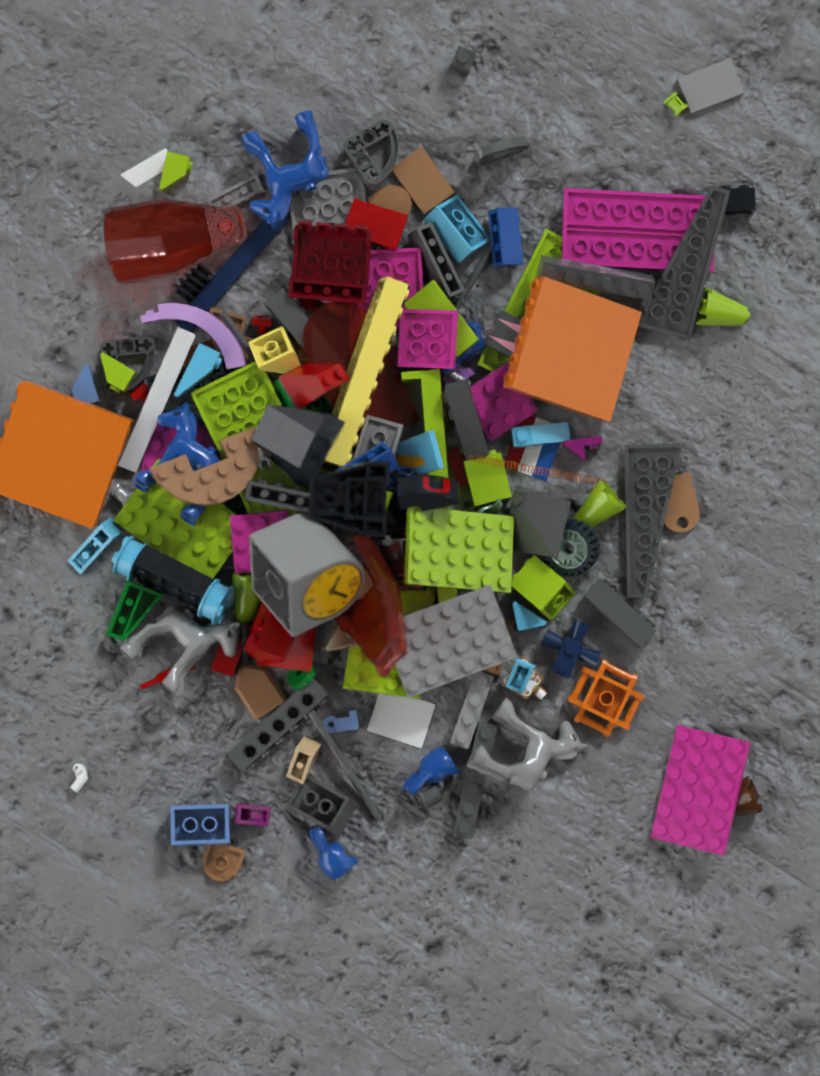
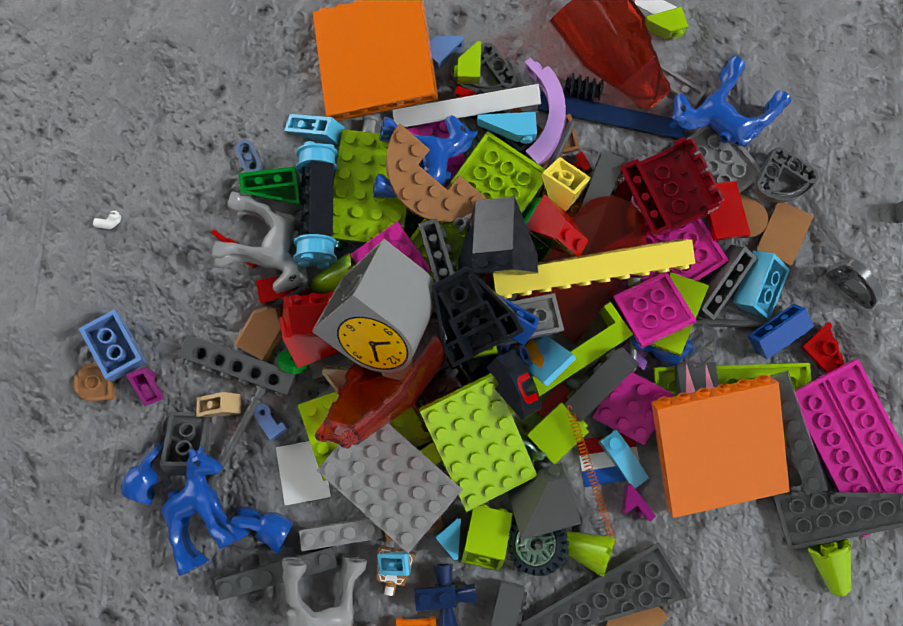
camera: 65 degrees right, 5 degrees down
(90, 618) = (249, 158): none -> sand blue plate
(375, 818) = (200, 498): none -> blue animal
(541, 208) = (824, 349): none -> red wing

